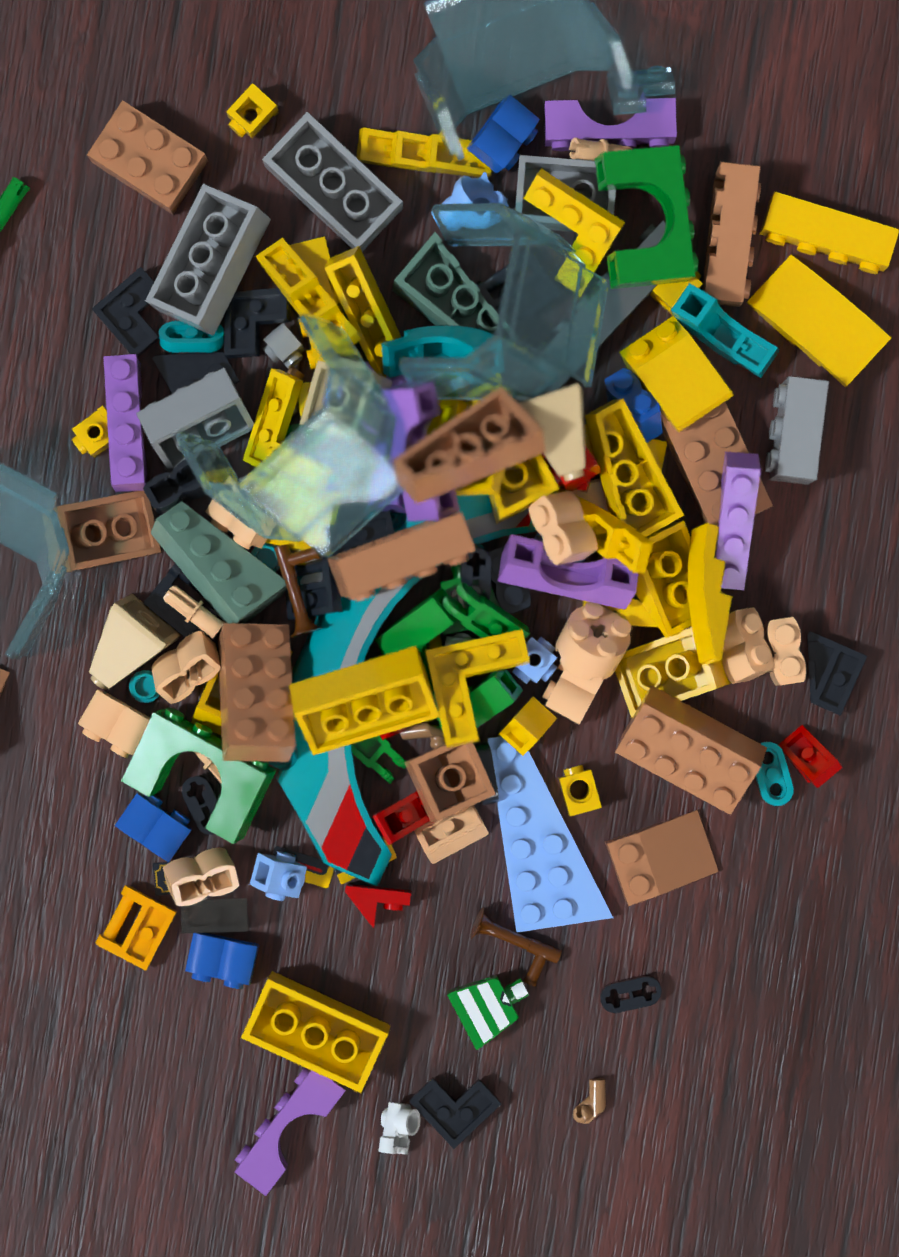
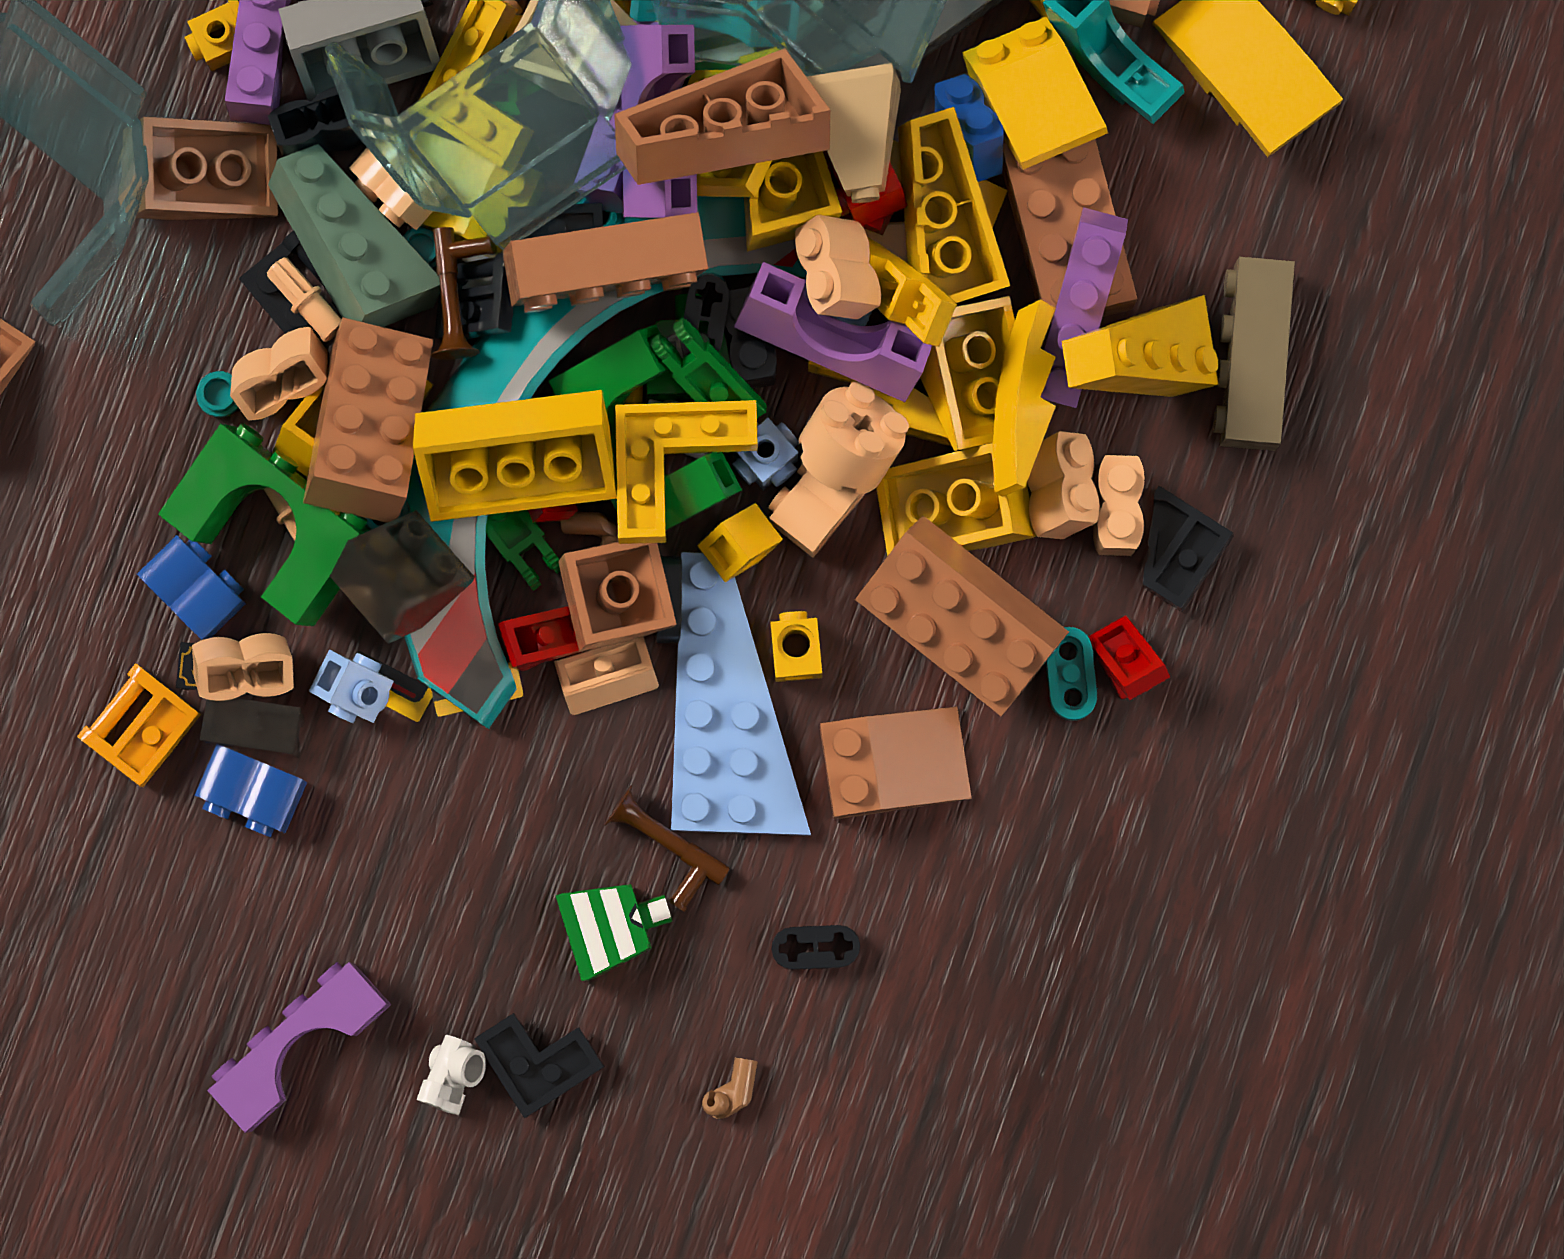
camera: 10 degrees right, 5 degrees down
(115, 722) = (164, 432): light nougat brick -> none
(128, 641) = (207, 326): tan slope -> none
(194, 804) = (254, 570): black beam -> none
(300, 798) = (400, 575): none -> clear smoke slope
(316, 1031) = (361, 914): yellow slope -> none
(367, 897) = (472, 742): red slope -> none
(787, 542) = (1147, 354): none -> yellow wedge
(797, 430) = (1189, 202): light grey brick -> none
(861, 526) = (1255, 353): none -> dark tan brick

